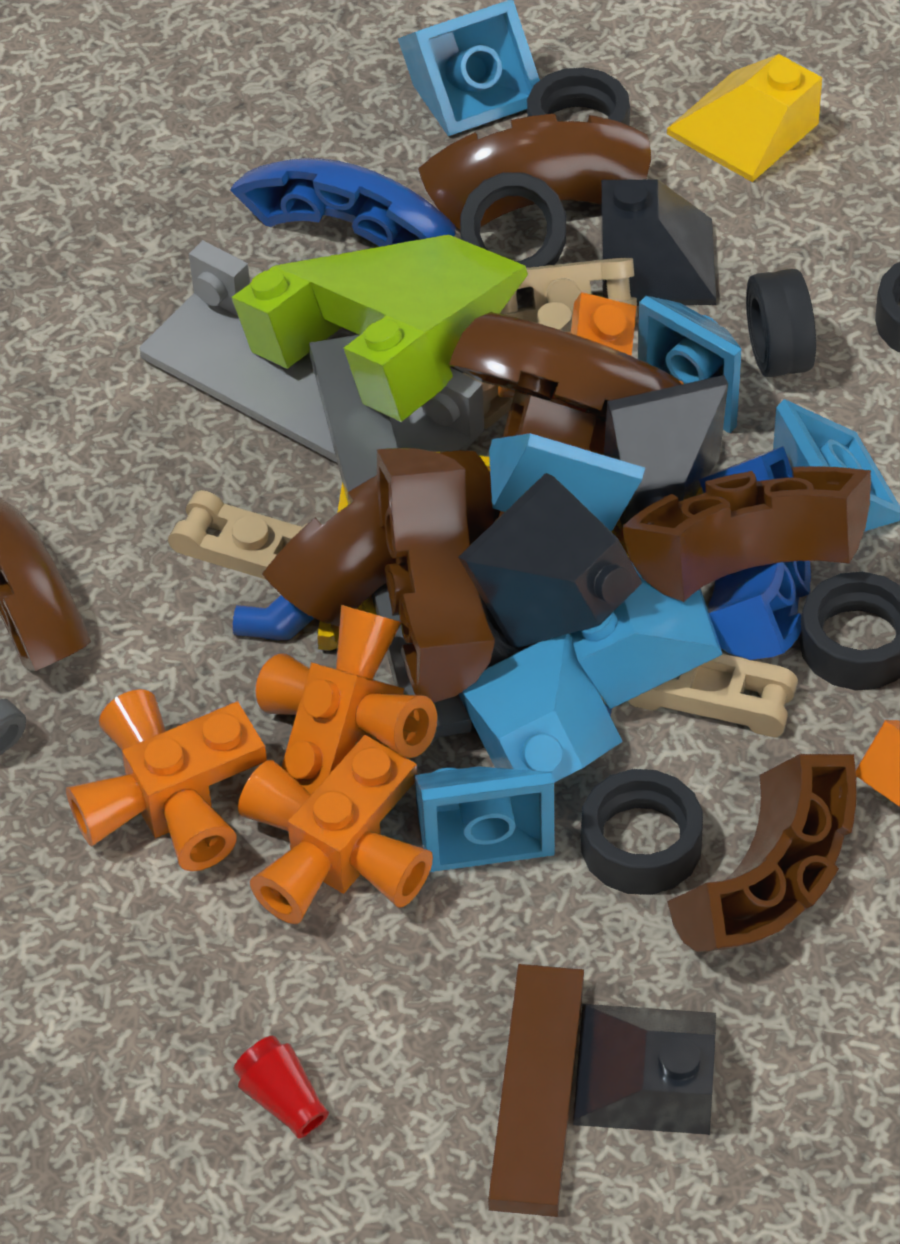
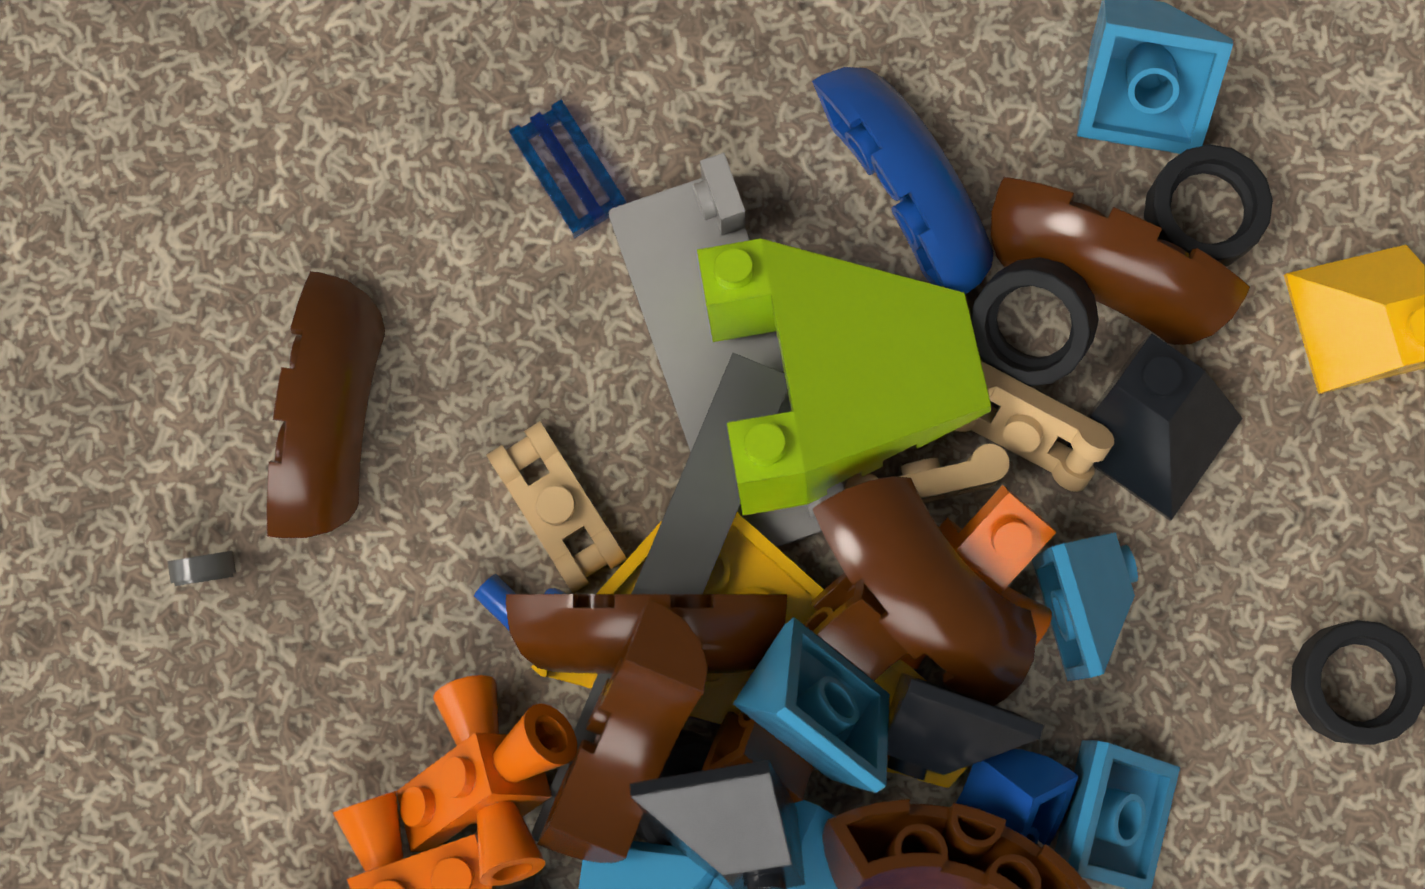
camera: 35 degrees right, 30 degrees up
(89, 340) = (541, 125): none -> clear blue tile
(169, 777) = (297, 737): orange brick -> none
(781, 322) = (1194, 618): black tyre -> none

